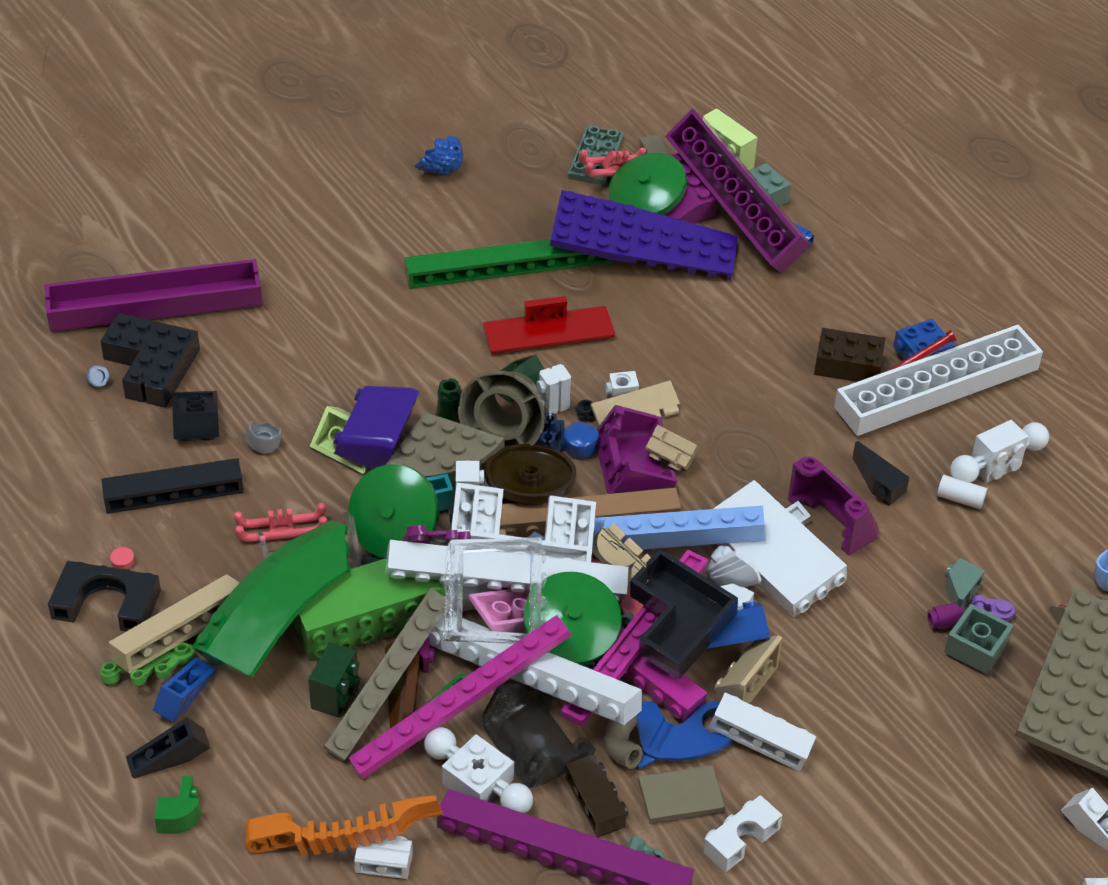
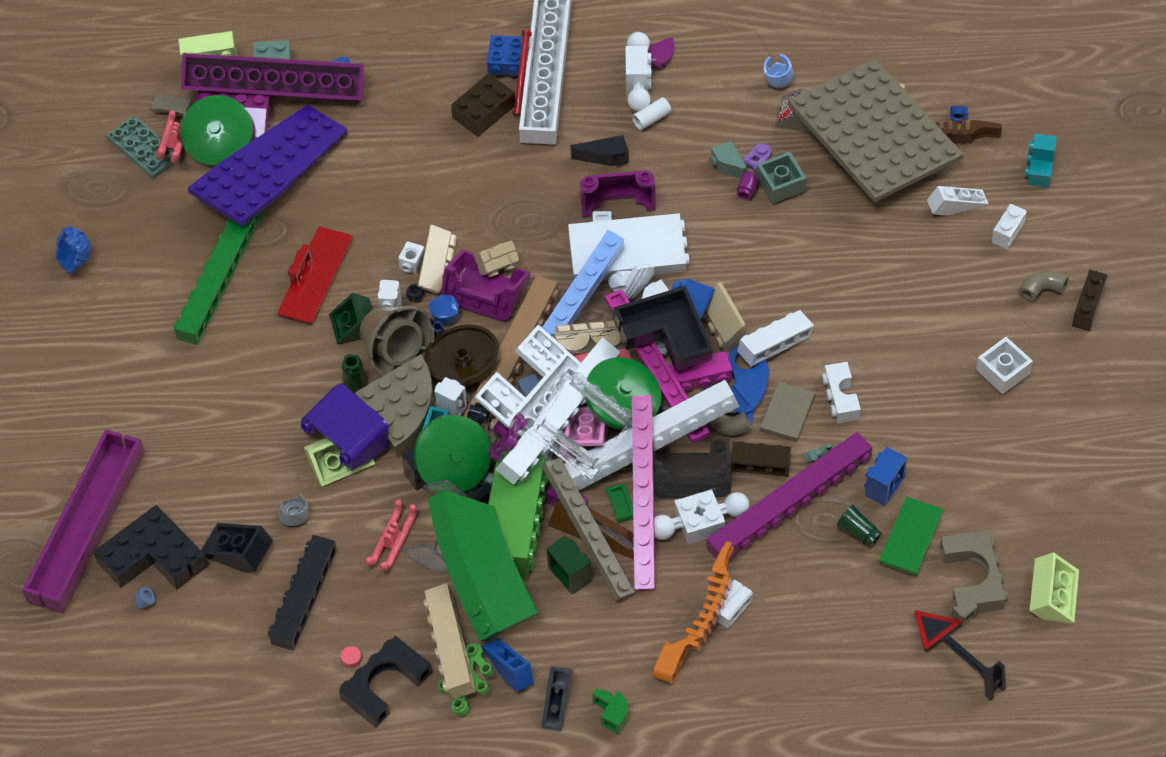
camera: 55 degrees left, 10 degrees up
(1045, 466) = (661, 53): none -> magenta arm

